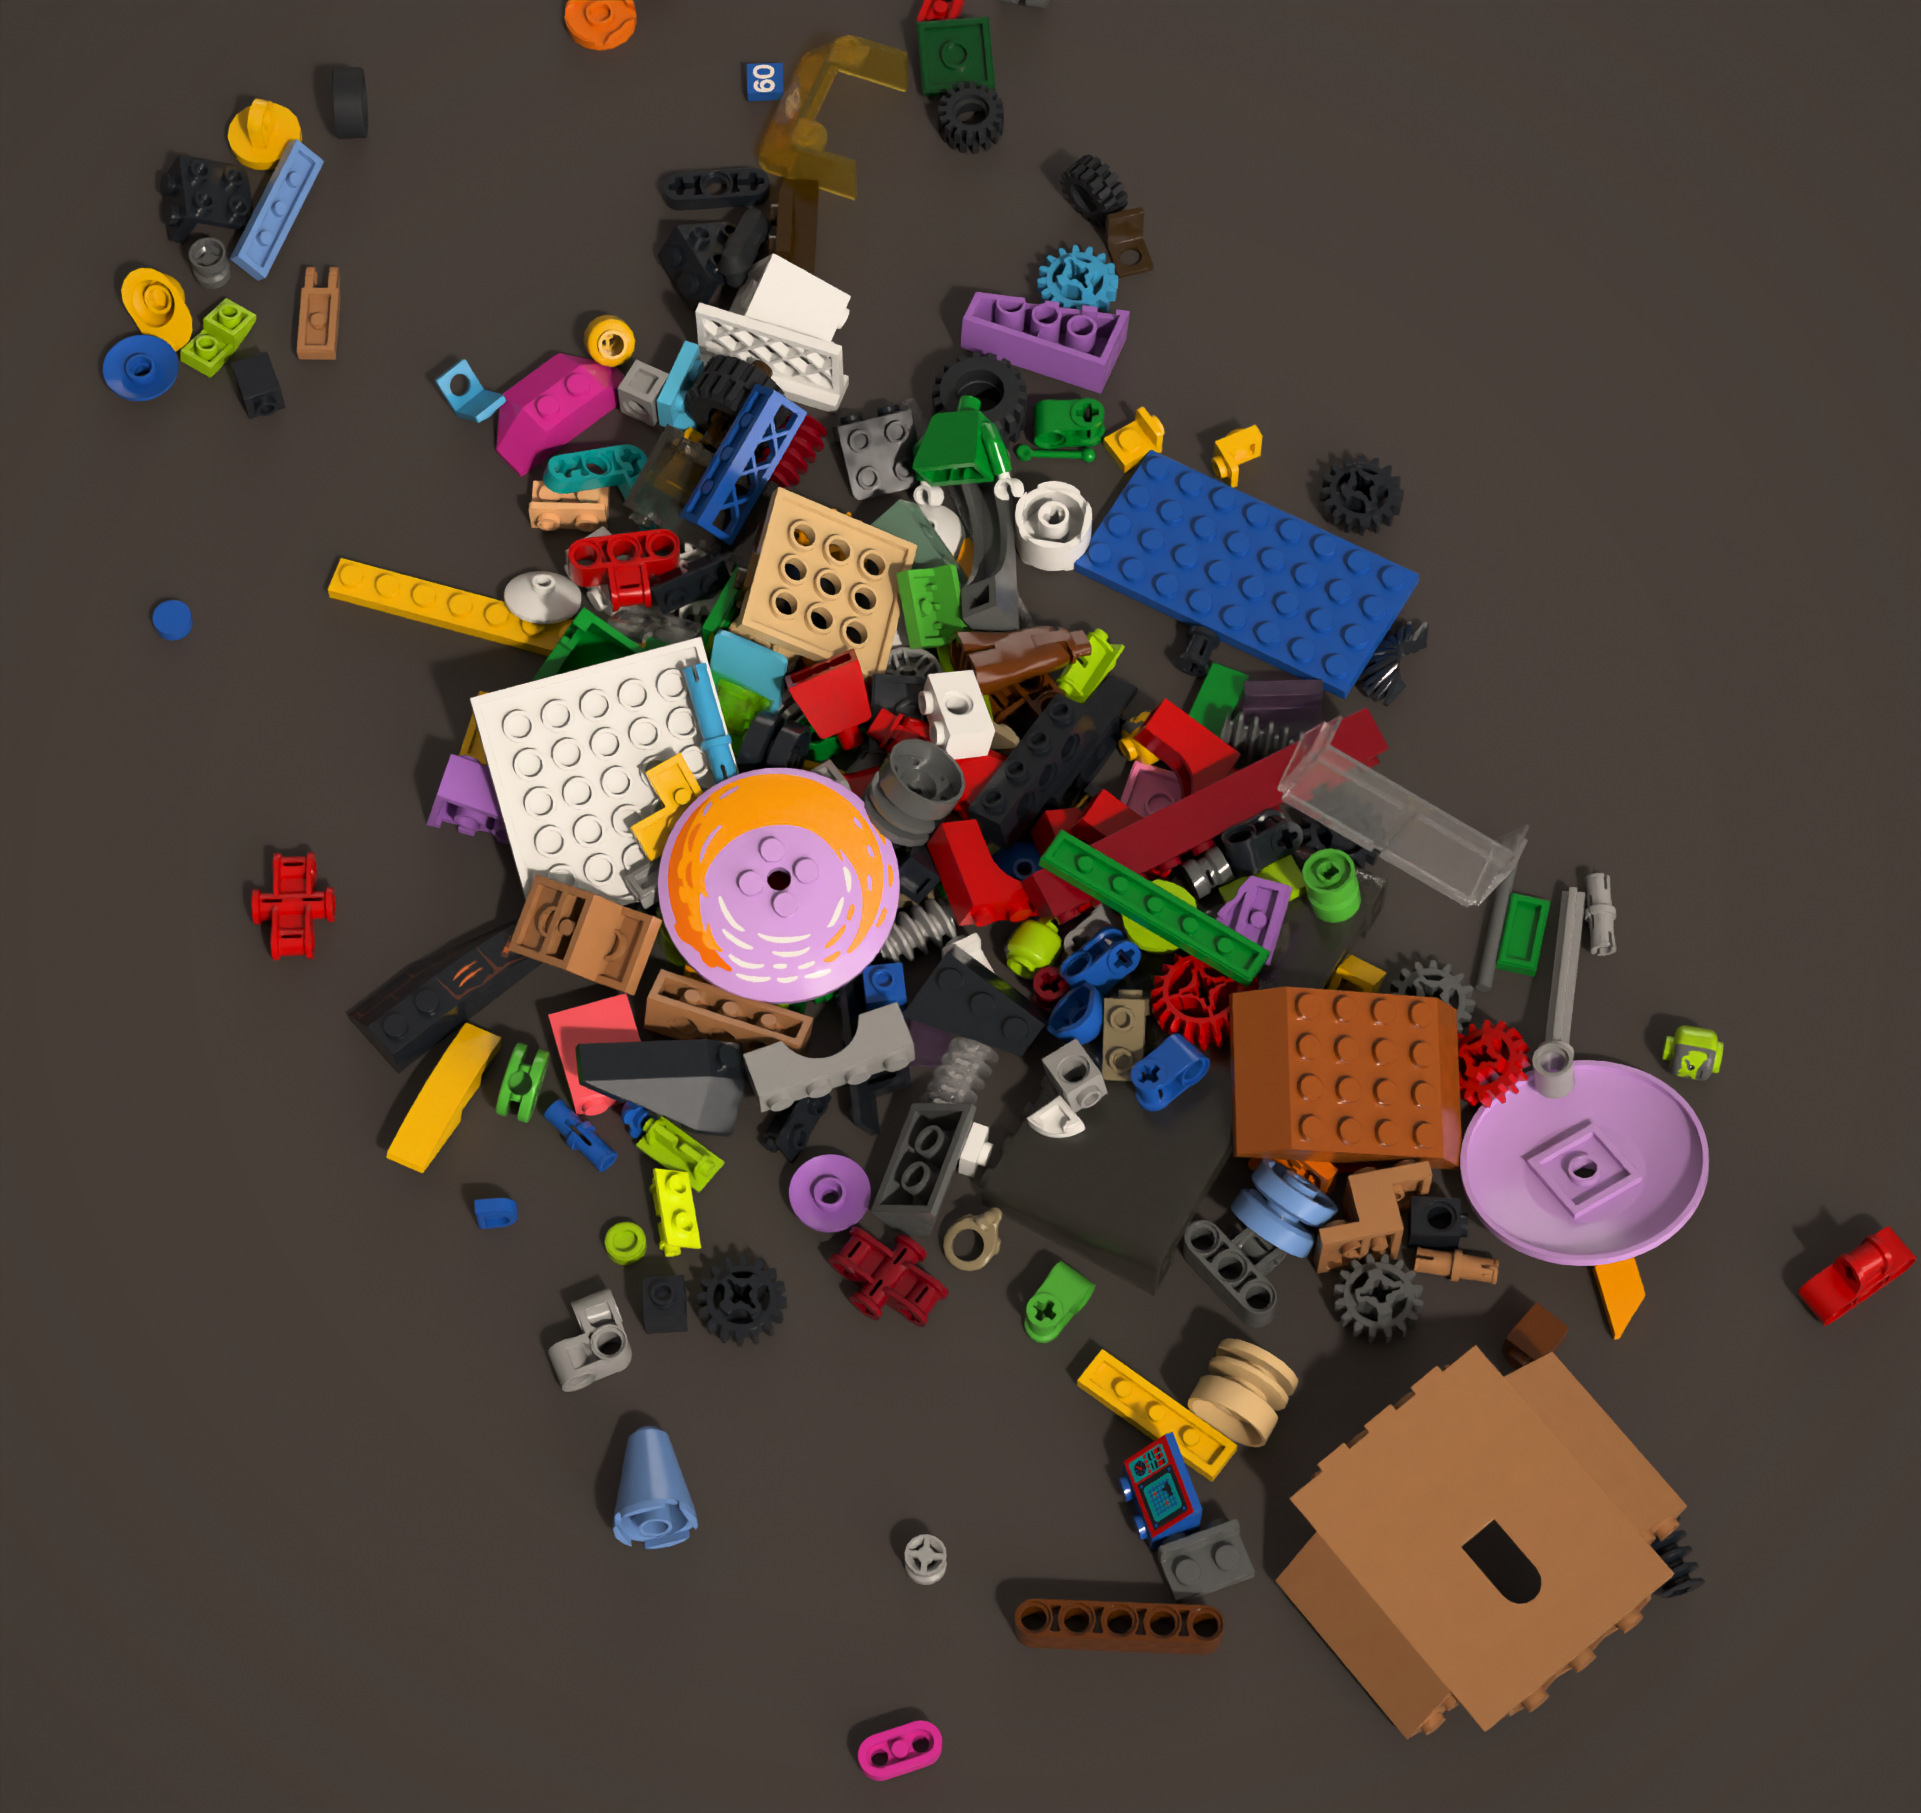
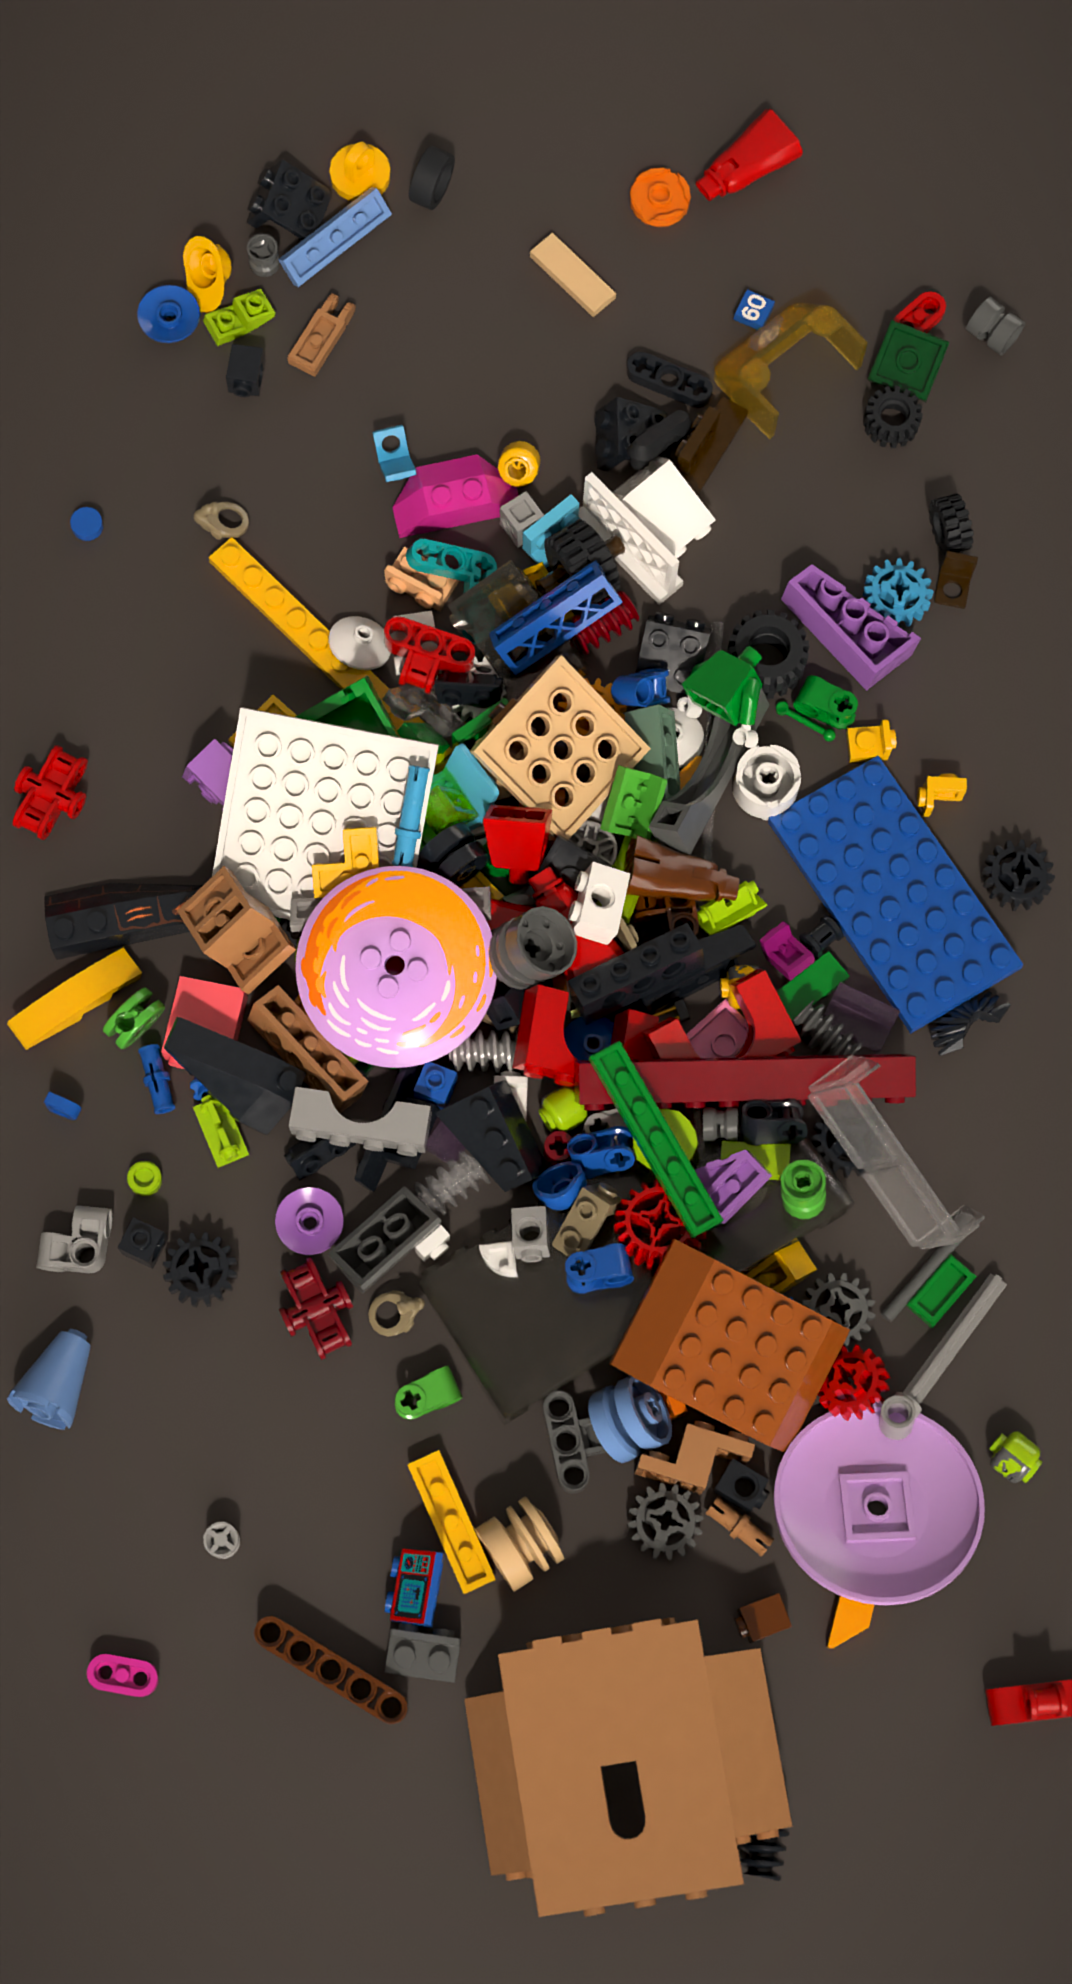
camera: 25 degrees right, 10 degrees up
(307, 553) = (208, 520): none -> dark tan piece
(553, 133) = (572, 274): none -> tan tile
(676, 1208) = (191, 1174): neon yellow hinge -> none
(870, 496) = (641, 688): none -> blue piece
(1171, 682) = (785, 951): none -> magenta bracket
(1600, 914) = (1009, 1307): light grey pin -> none

